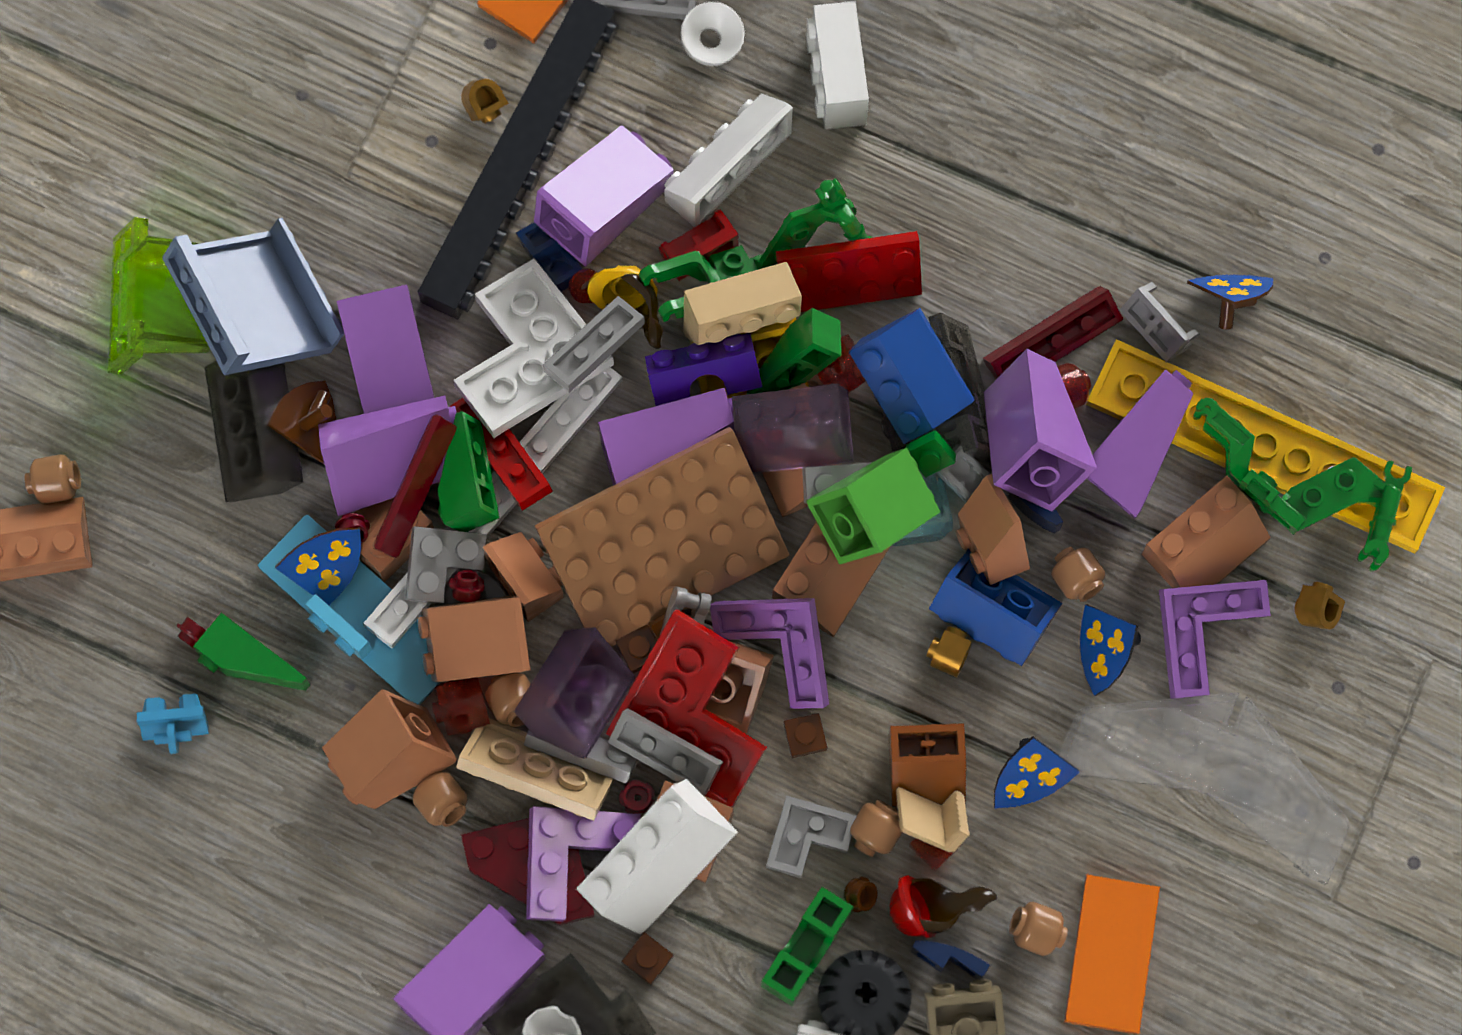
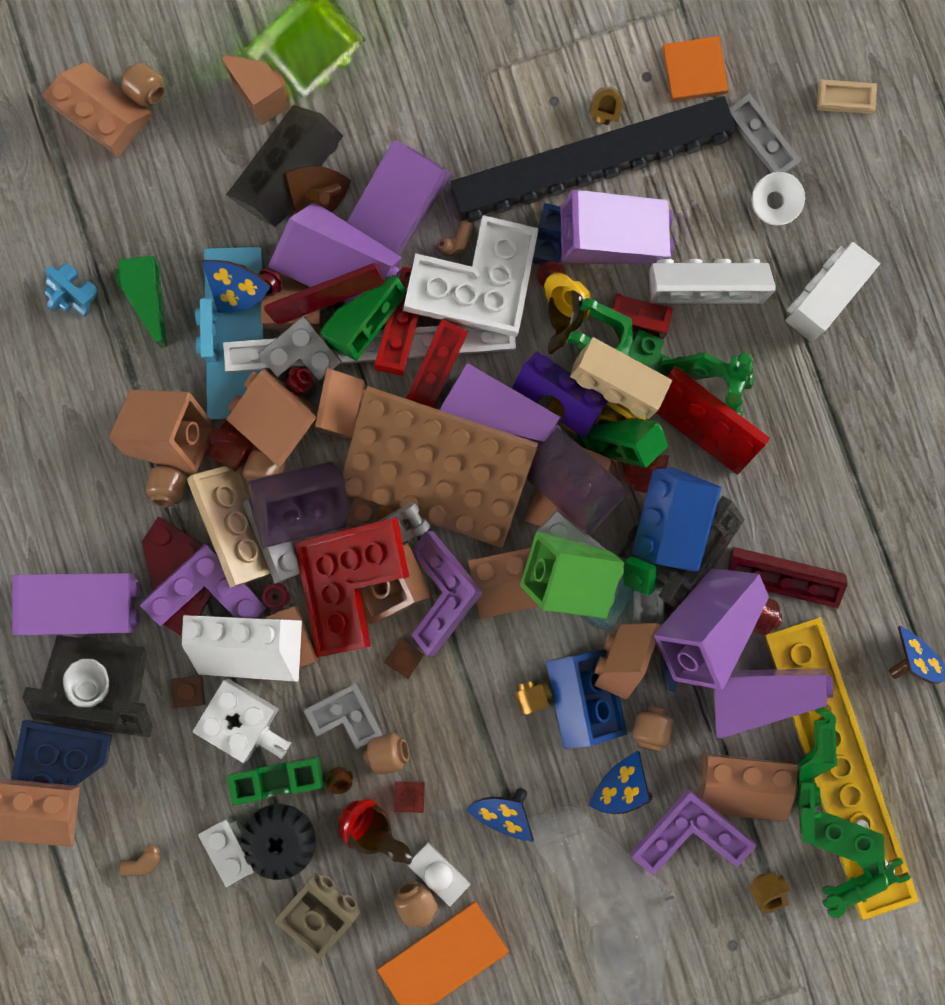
camera: 45 degrees right, 10 degrees up
(161, 378) = (259, 86): none -> nougat slope
(190, 631) = (130, 249): dark red plate -> none
(254, 299) = (351, 90): panel -> none
(476, 339) = (457, 243): none -> medium nougat arm
(568, 451) = (437, 363): none -> red plate
(593, 344) = (514, 314): light grey plate -> none
(664, 751) = (311, 589): light grey plate -> none
(731, 914) = (255, 717): none -> white brick
(928, 760) = (451, 749): dark orange slope -> none
(933, 823) = (419, 785): tan piece -> none
(939, 954) = (345, 862): dark blue slope -> none
(1030, 884) = (439, 874): none -> white tile
(1156, 324) = (853, 632): light grey hinge -> none

